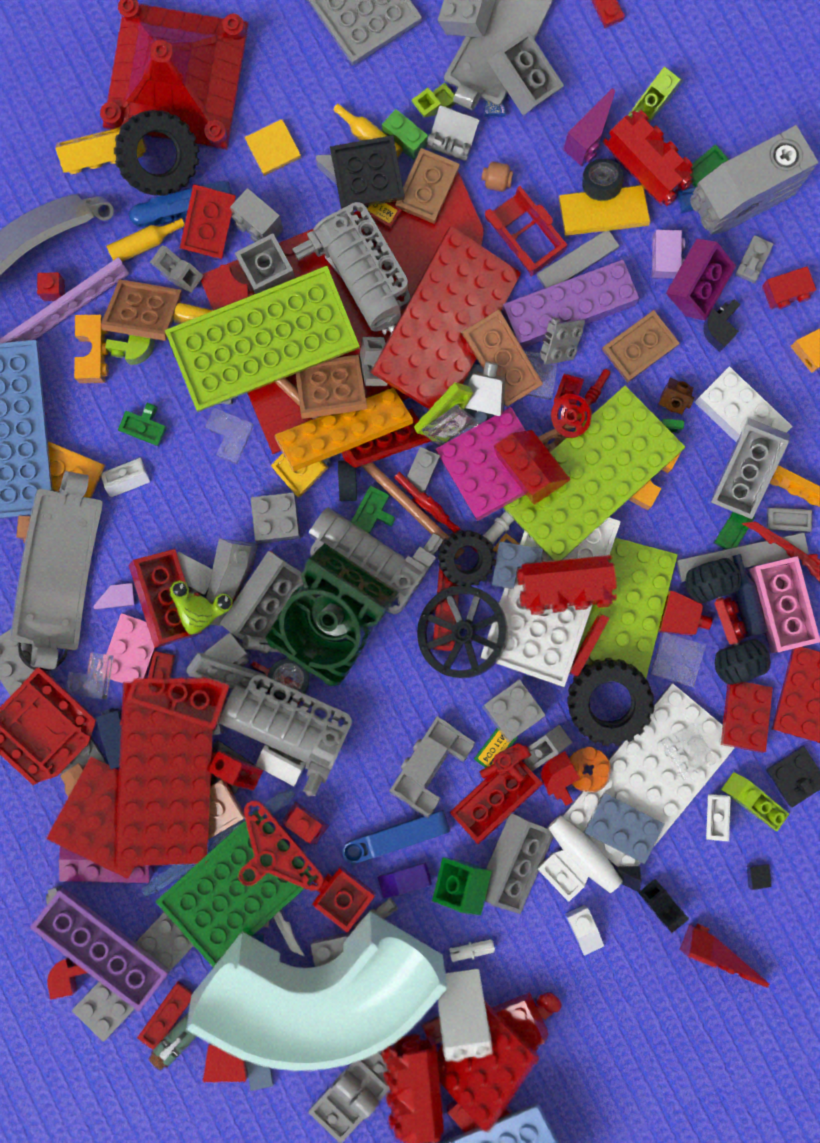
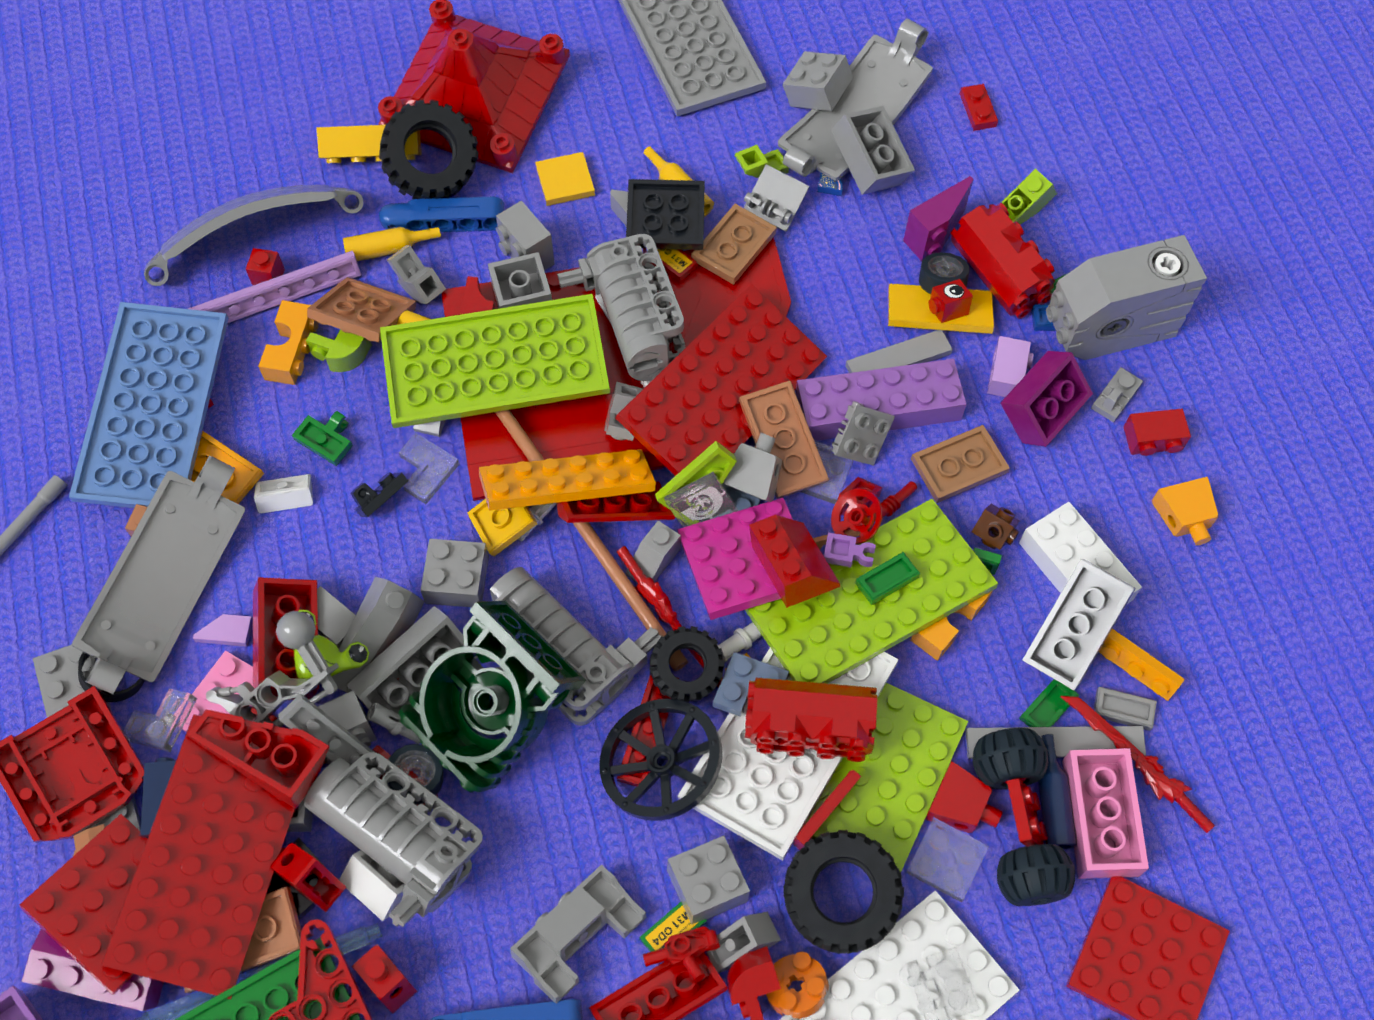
camera: 10 degrees right, 20 degrees down
(179, 606) = (294, 631): none -> light grey piece
(204, 459) = (370, 500): none -> black hinge
(207, 221) = (466, 233): red plate -> none
(331, 388) = (563, 430): nougat plate -> none
(347, 481) = (556, 545): black wheel -> none
(371, 510) = (580, 588): green plate -> none
(405, 133) = (720, 187): bright green brick -> none
(497, 176) = (819, 250): nougat head -> none
(511, 211) = (834, 289): red piece -> none
(565, 446) = (843, 550): none -> medium lavender plate
(603, 461) = (887, 578): none -> green tile
(612, 206) = (950, 301): none -> red brick
(717, 328) = (1062, 461): black brick -> none
(746, 716) = (1032, 957): red plate -> none

